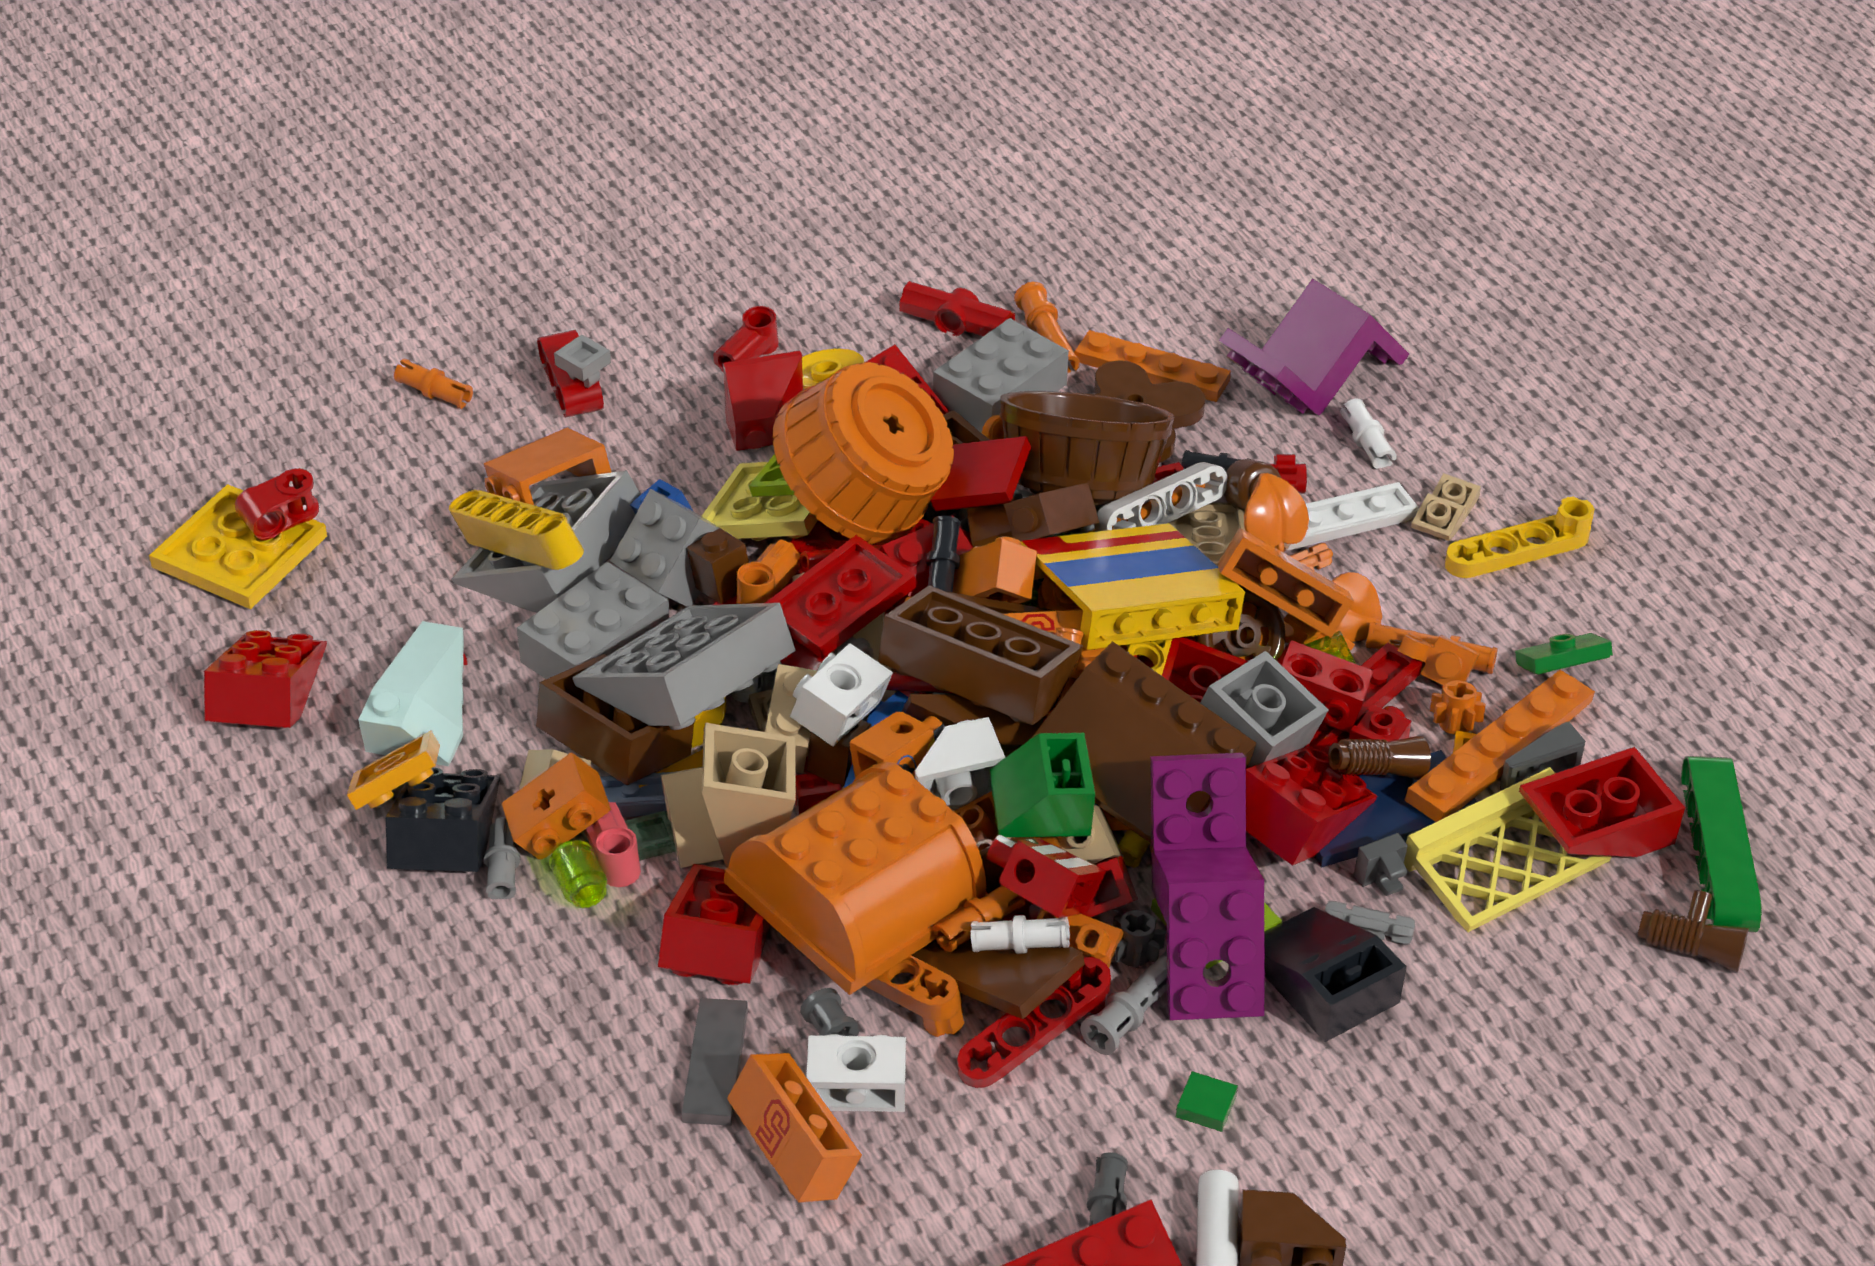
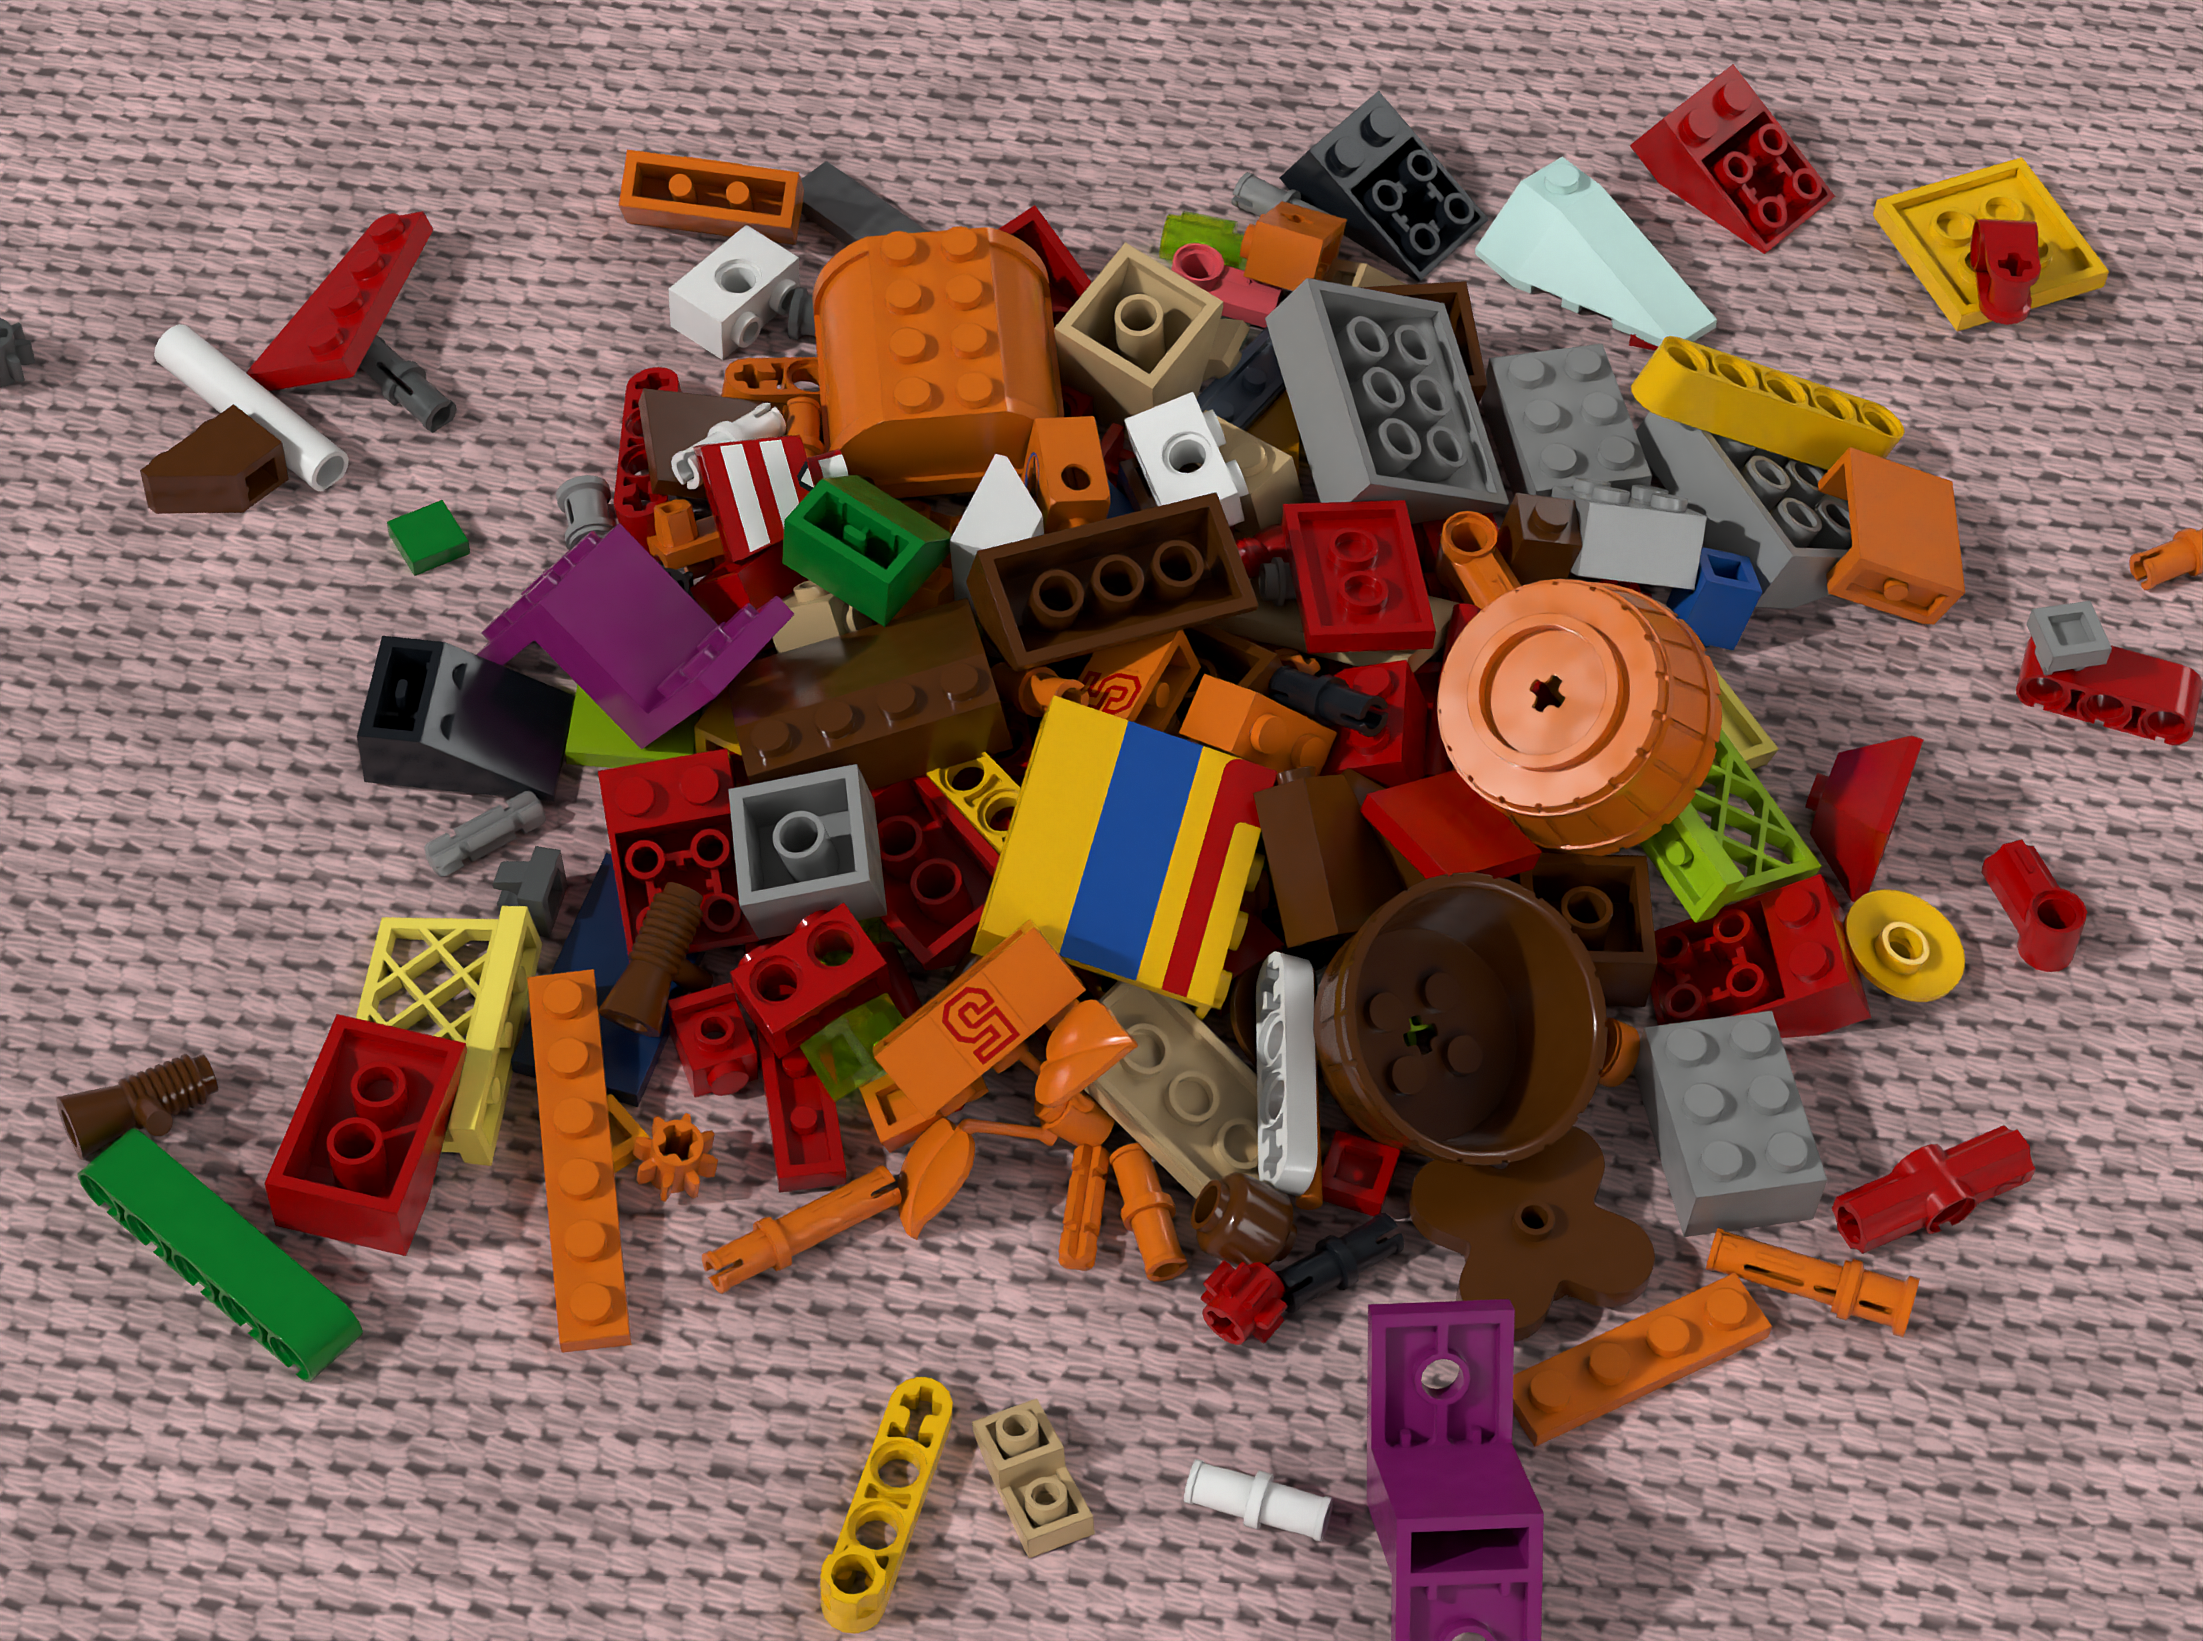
camera: 125 degrees right, 10 degrees up
(406, 764) = (1464, 156): light orange plate -> none
(1357, 513) = (1111, 1313): white tile -> none
(1444, 660) = (752, 1202): orange plate -> none
(1558, 749) = (507, 1190): dark grey slope -> none
(1563, 652) = (651, 1366): green plate -> none

